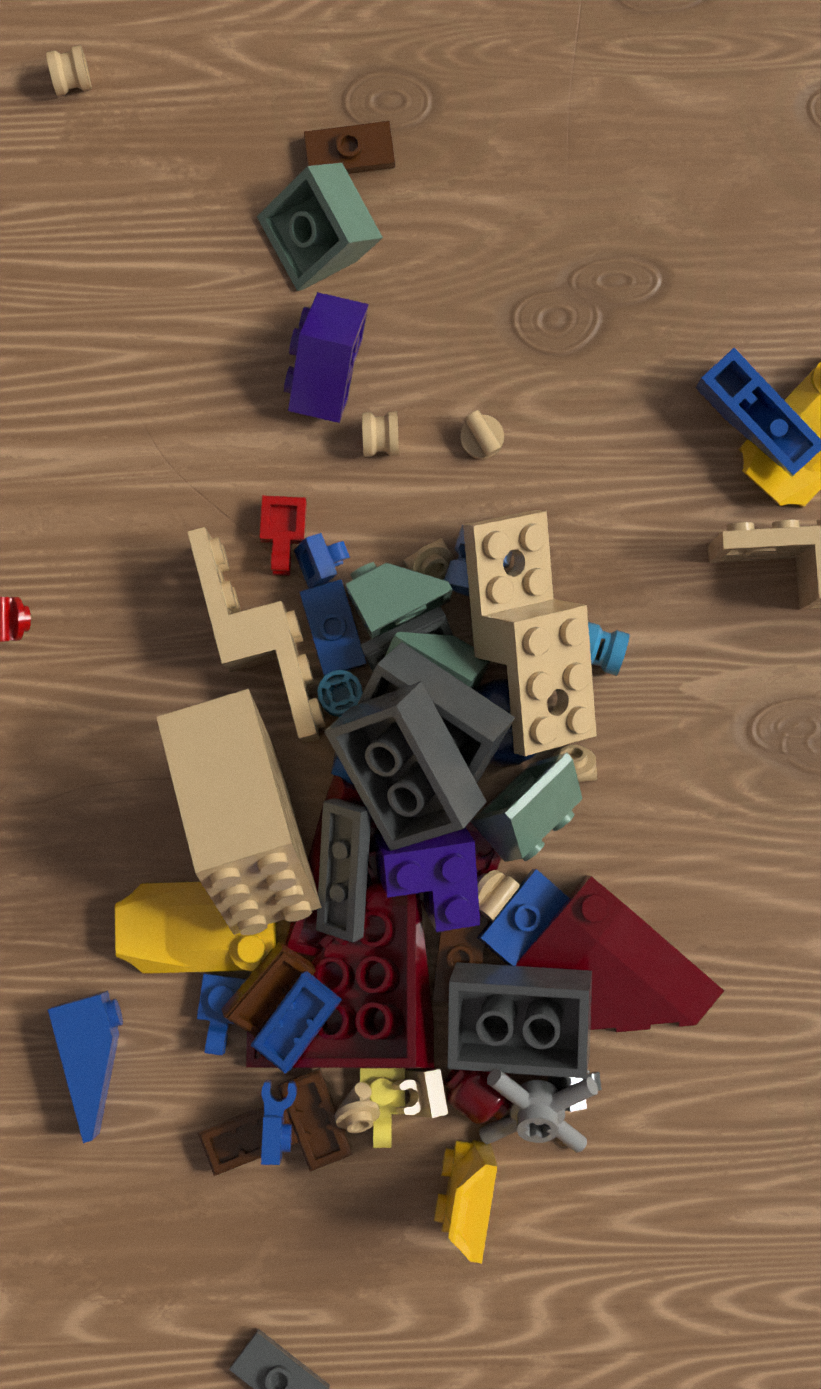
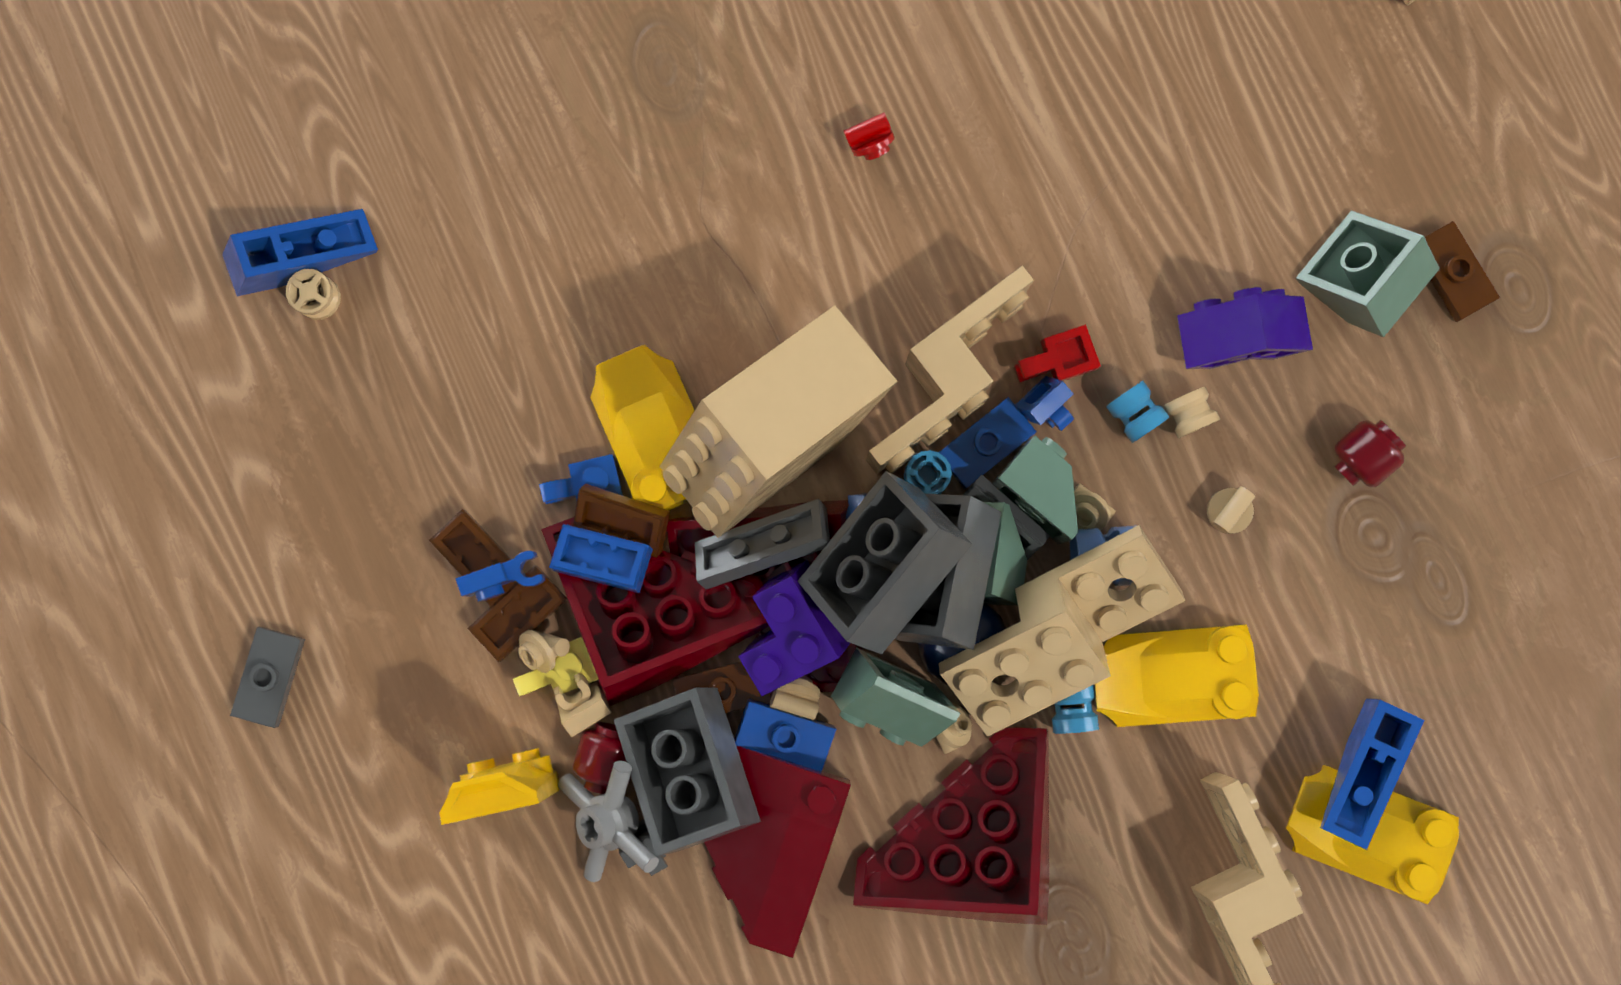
camera: 70 degrees right, 0 degrees up
(87, 1048) = (499, 375): blue slope -> none
(350, 484) = (1131, 403): none -> dark azure wheel
(481, 293) = (1369, 453): none -> dark red head
(610, 543) = (1179, 676): none -> yellow slope
(688, 785) = (974, 846): none -> dark red slope

